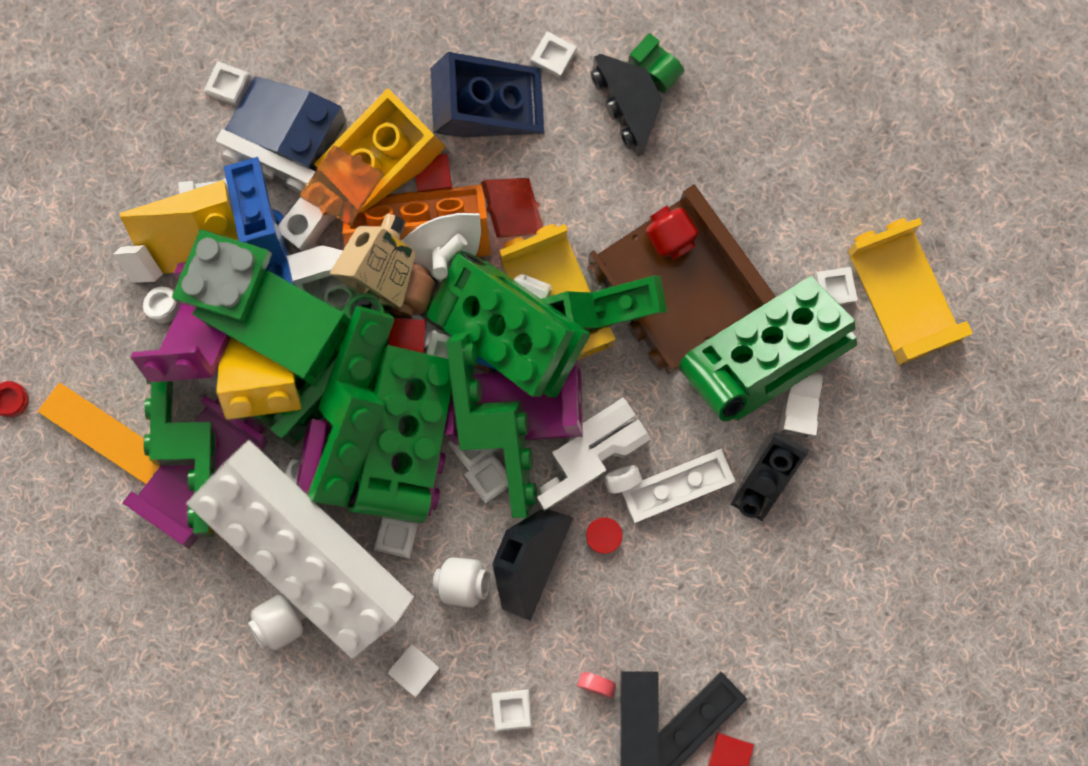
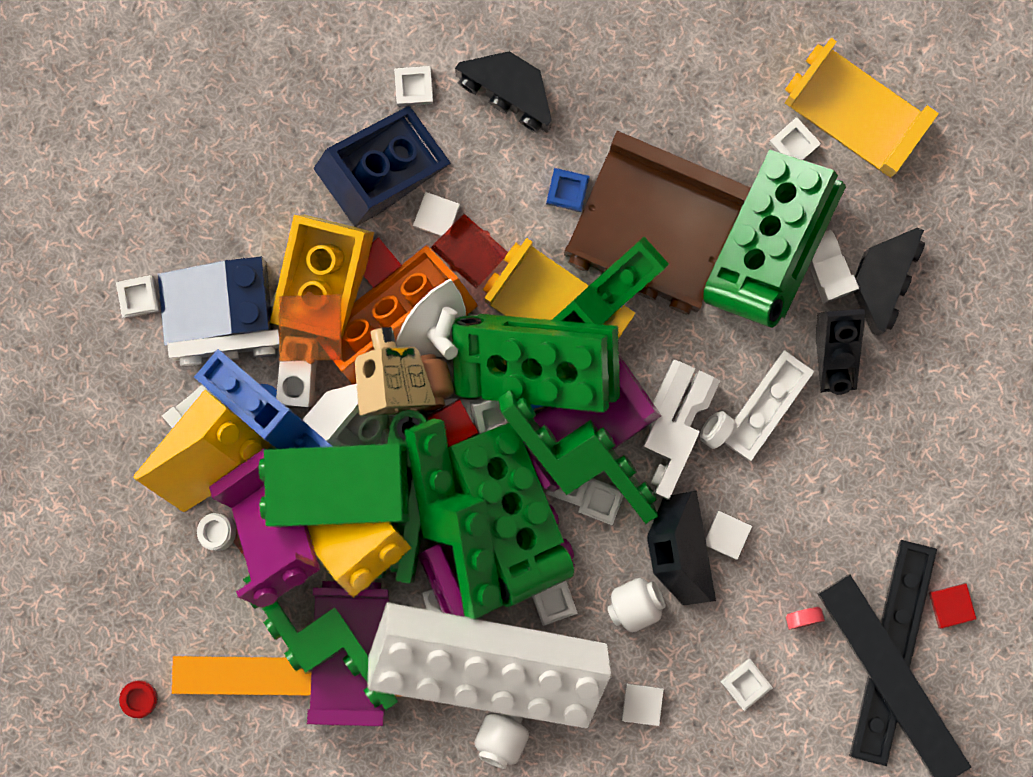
camera: 30 degrees left, 5 degrees up
(138, 264) = (173, 510): white tile -> none
(221, 276) = (271, 477): light grey piece -> none
(505, 163) = (436, 214): none -> white tile
(536, 286) = (534, 309): white tile -> none
(576, 573) = (727, 535): none -> white tile
(604, 535) = (730, 488): red tile -> none
(624, 210) = (567, 190): none -> blue tile
(661, 65) = (517, 38): green leg -> none
(671, 232) = (623, 185): red head -> none
(844, 441) = (884, 277): none -> black slope

